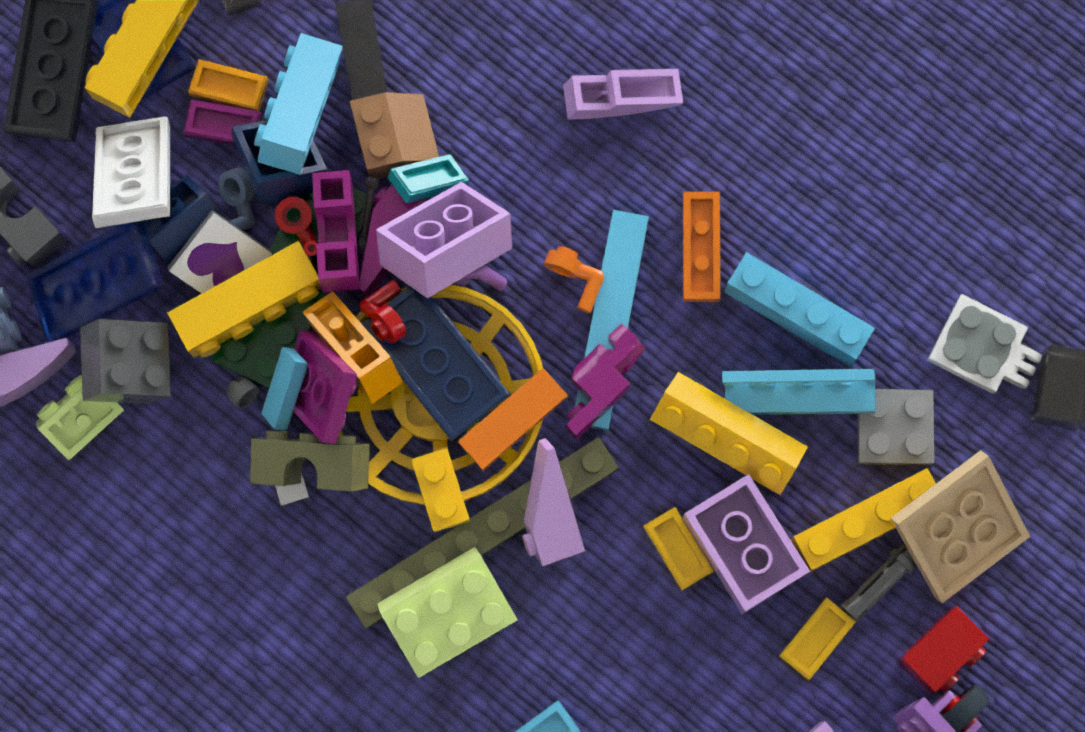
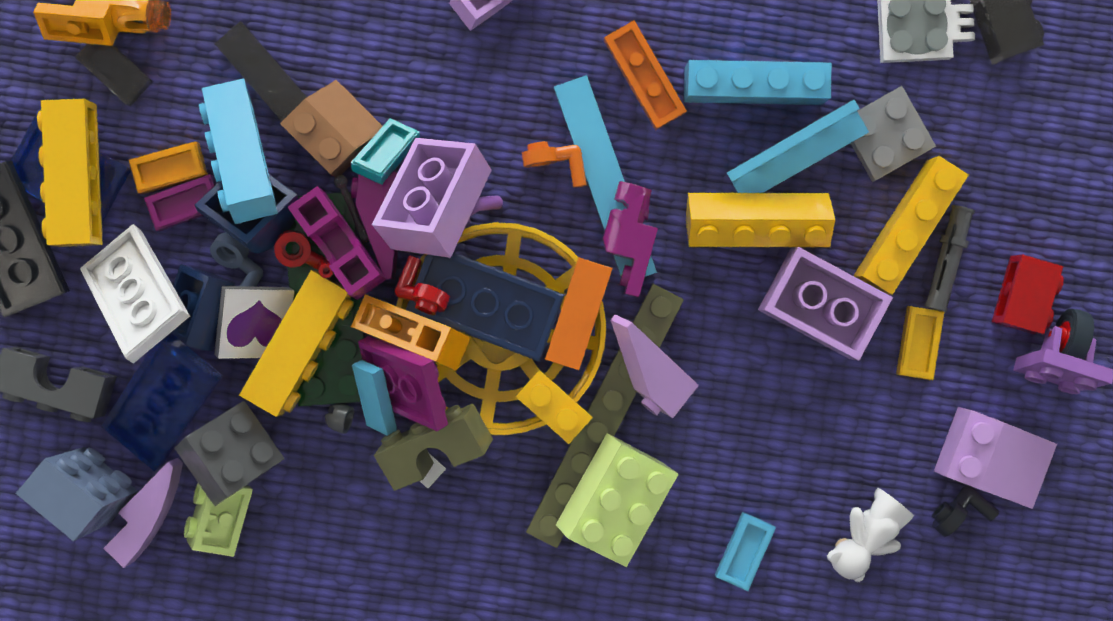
camera: 40 degrees left, 10 degrees up
(678, 548) = (768, 336): yellow tile -> none
(960, 526) = (991, 187): tan plate -> none

